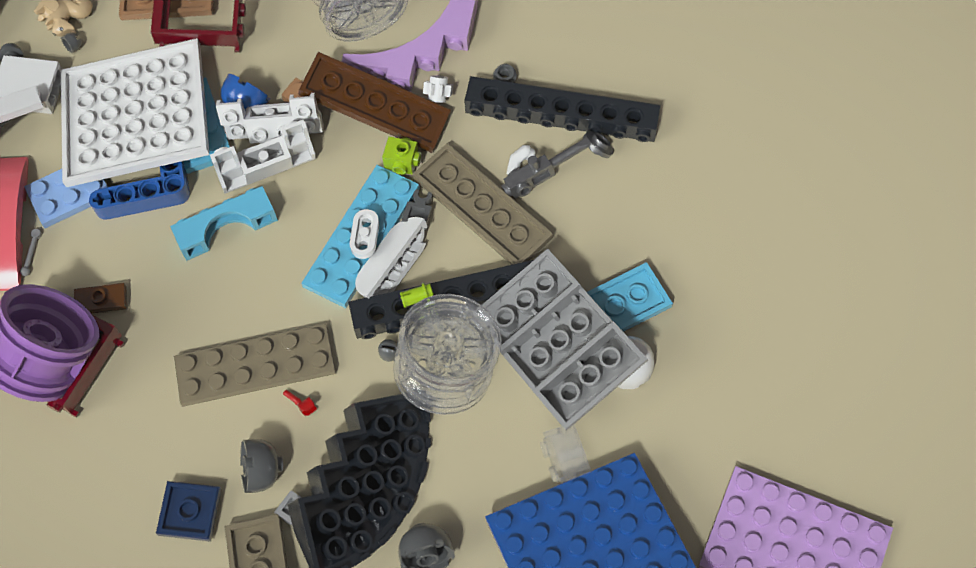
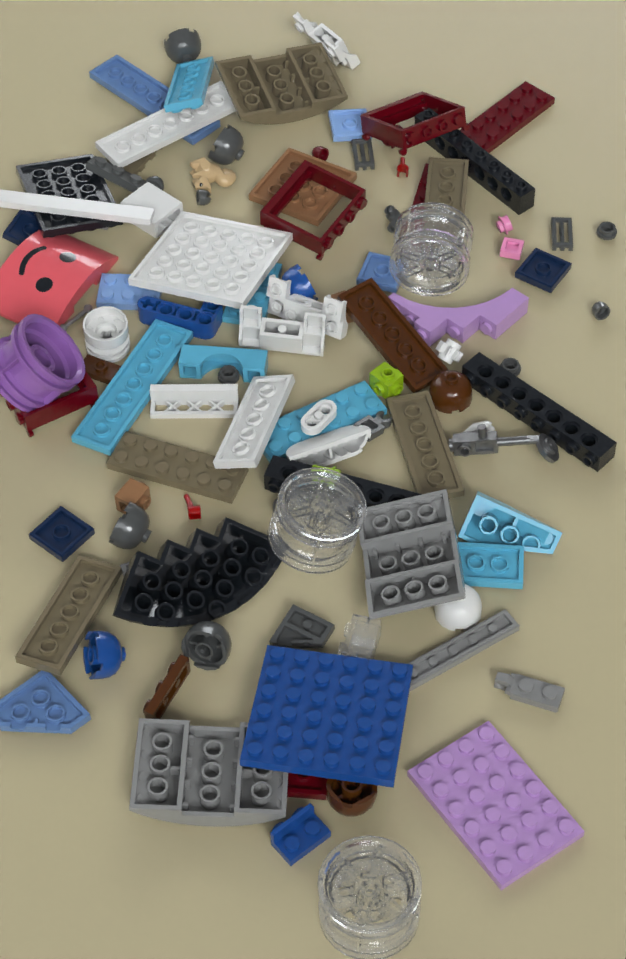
camera: 30 degrees right, 15 degrees down
(82, 257) = (106, 334): none -> white wheel
(147, 301) = (130, 387): none -> medium azure plate
(219, 274) = (193, 396): none -> white fence
(234, 227) = (228, 375): none -> dark grey plate
(236, 426) = (133, 492): none -> medium nougat brick
(303, 275) = (254, 422): none -> white plate
(310, 36) = (377, 267): none -> medium blue plate
(467, 132) = (451, 391): none -> reddish brown cylinder
(501, 475) = (302, 630): none -> dark grey wing
(609, 251) = (498, 523): none -> medium azure wedge
(658, 401) = (462, 647): none -> light grey tile
(750, 410) = (530, 691): none -> light grey hinge

